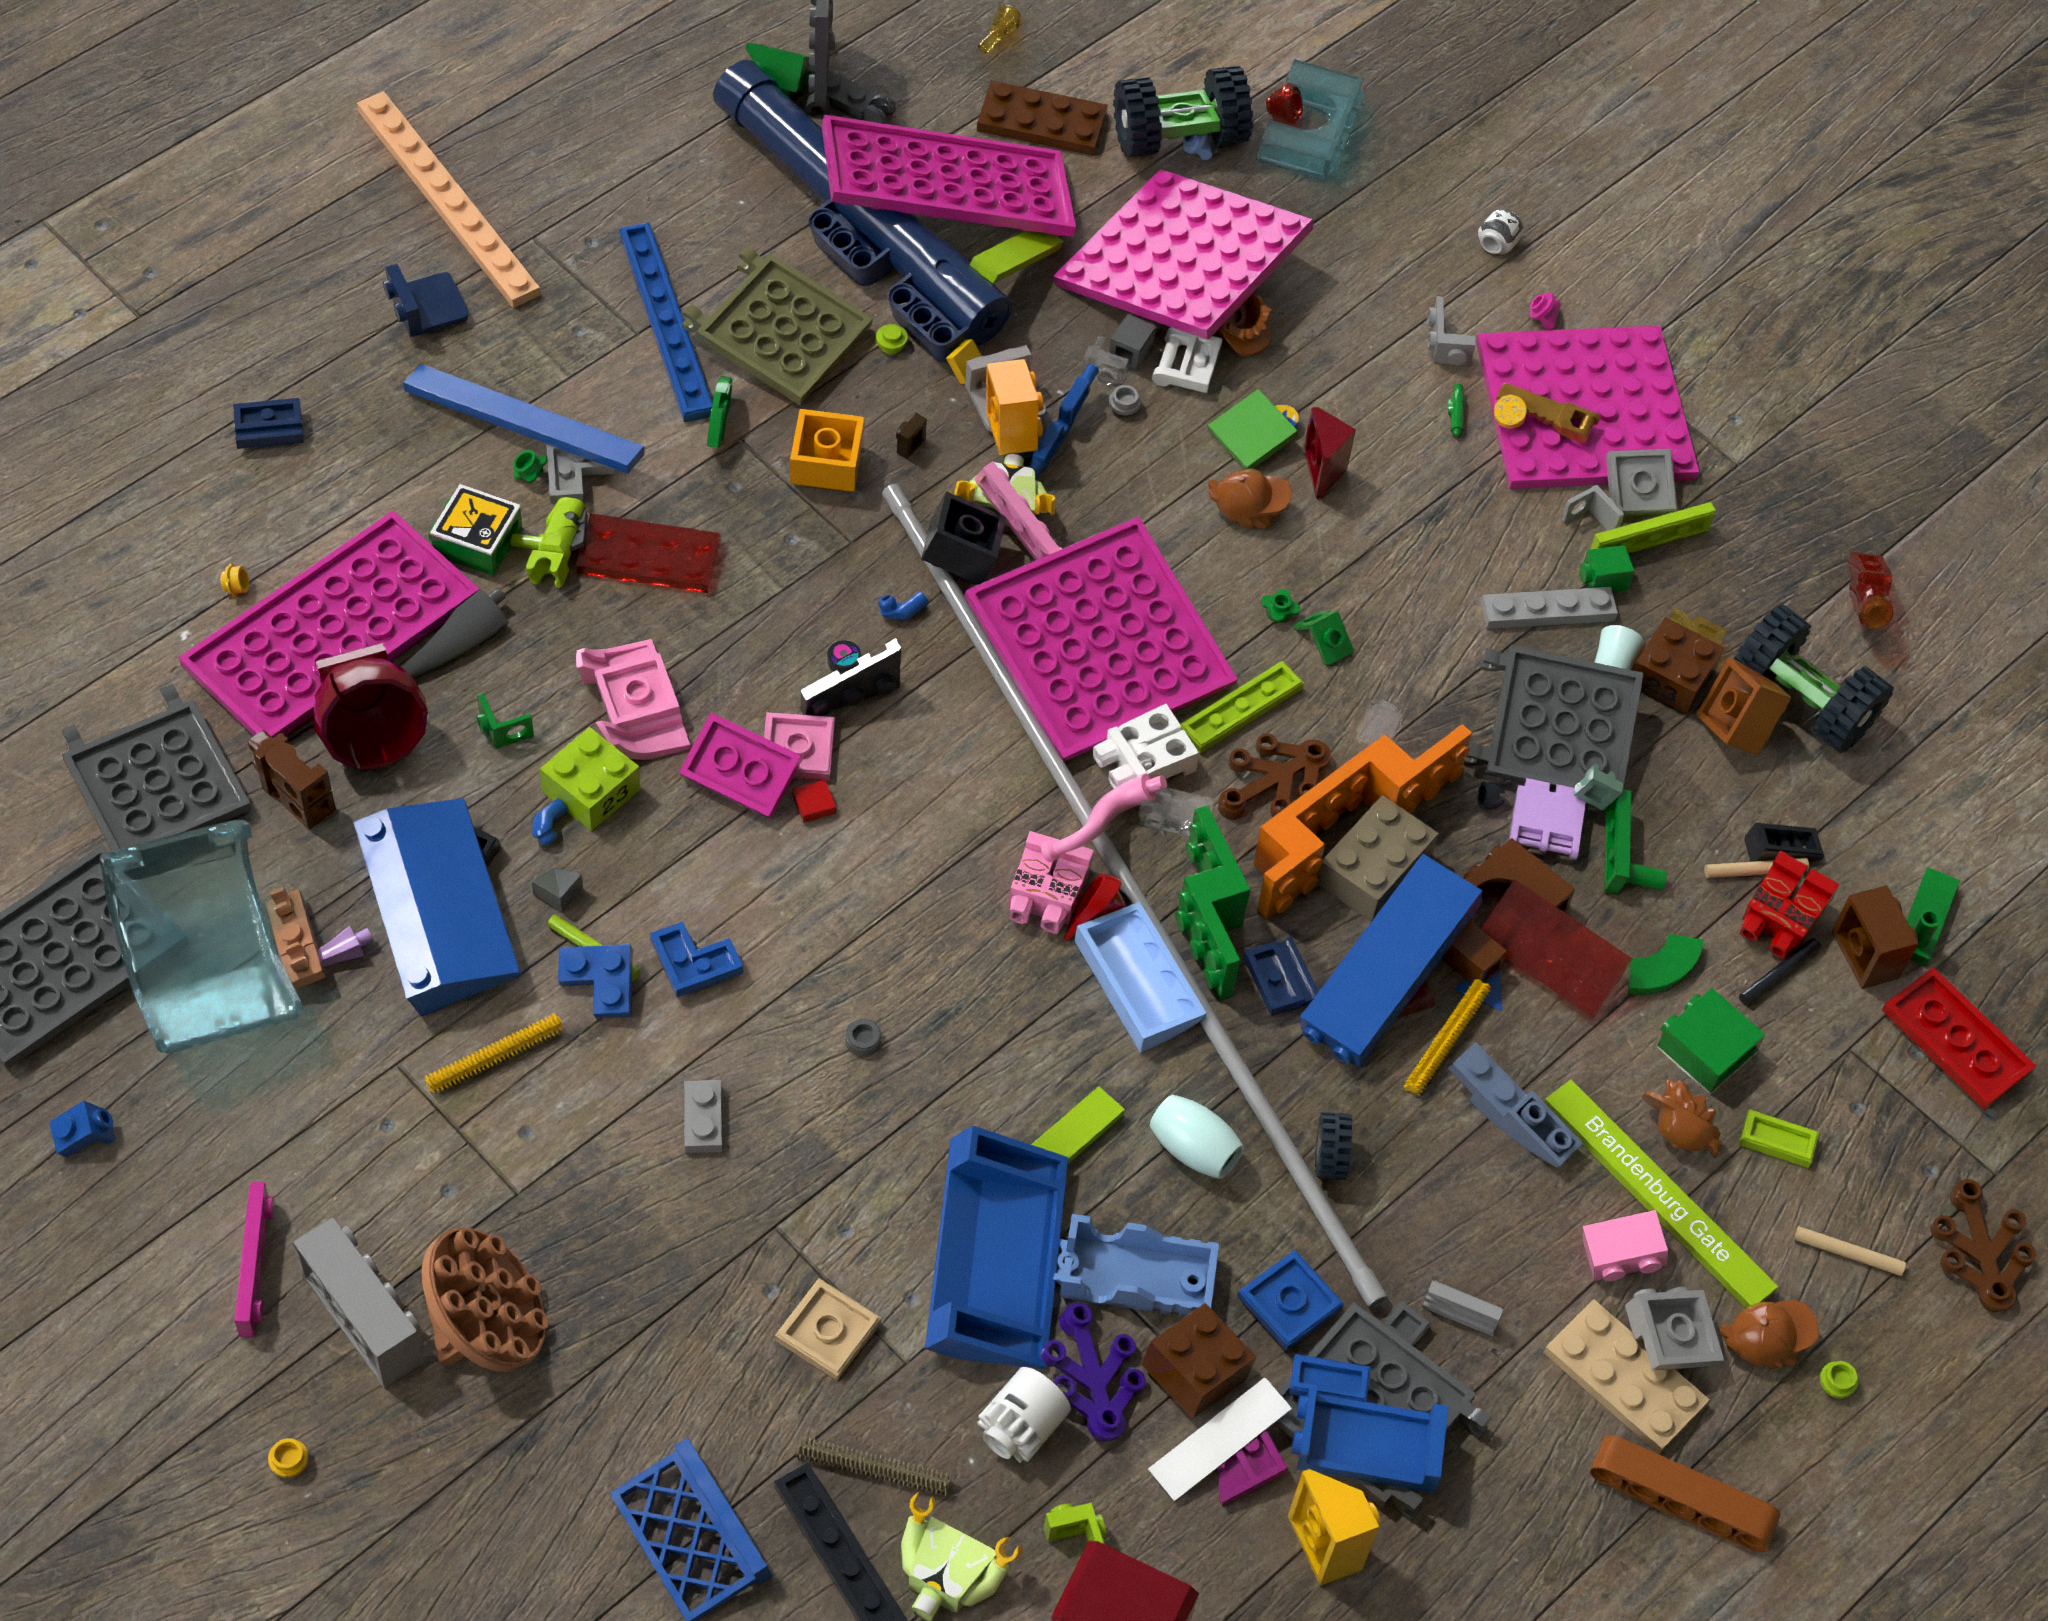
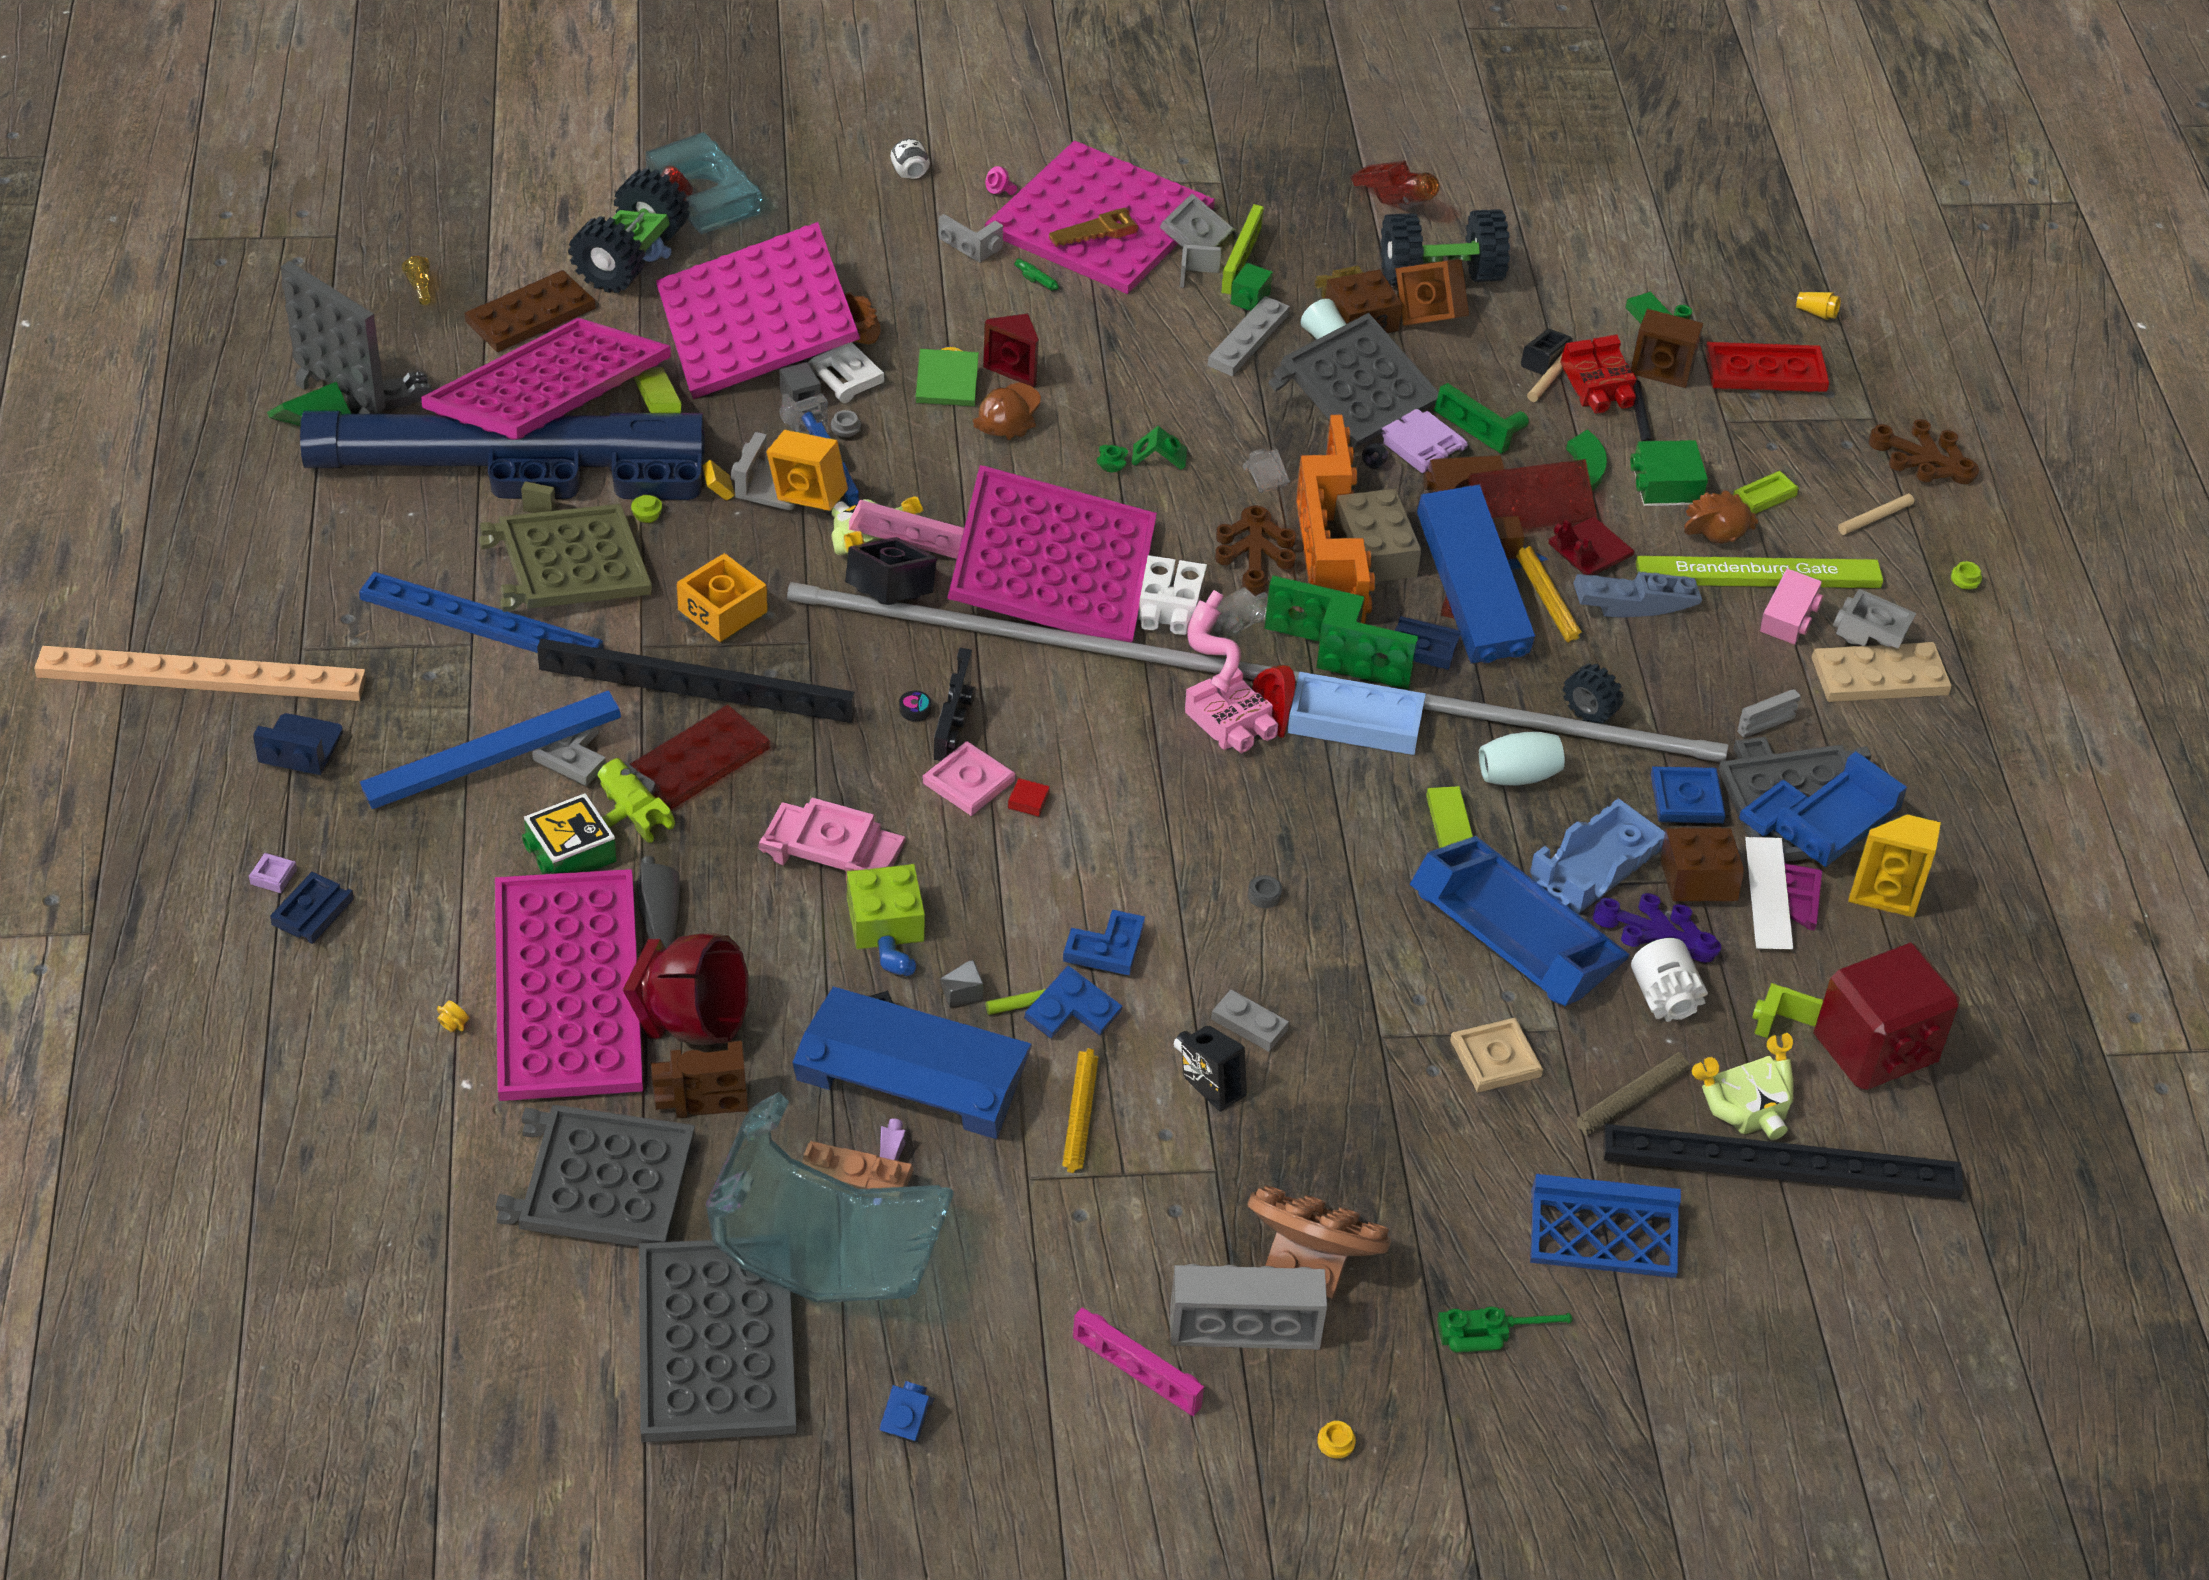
camera: 50 degrees left, 10 degrees down
(287, 377) = (272, 872): none -> lavender tile
(498, 732) = (771, 936): green bracket -> none
(509, 1502) = (1484, 1328): none -> green piece
(528, 466) = (533, 769): green plate -> none
(614, 1104) = (1213, 1065): none -> black torso
(720, 411) = (613, 633): green tile -> none
(727, 502) = (696, 680): none -> black plate
(741, 765) = (962, 813): dark pink plate -> none
(827, 265) = (538, 498): none -> olive tile
(902, 611) = (906, 650): blue arm -> none
(911, 435) = (753, 548): dark brown plate -> none
(1242, 706) = (1176, 524): lime tile -> none
(1510, 411) = (1077, 244): yellow tile -> none
(1544, 1033) = (1589, 545): none -> dark red plate
(1598, 788) = (1430, 395): sand green tile -> none
(1685, 1493) = (1992, 695): dark orange beam -> none
(1772, 1333) = (1913, 580): dark orange hair -> none

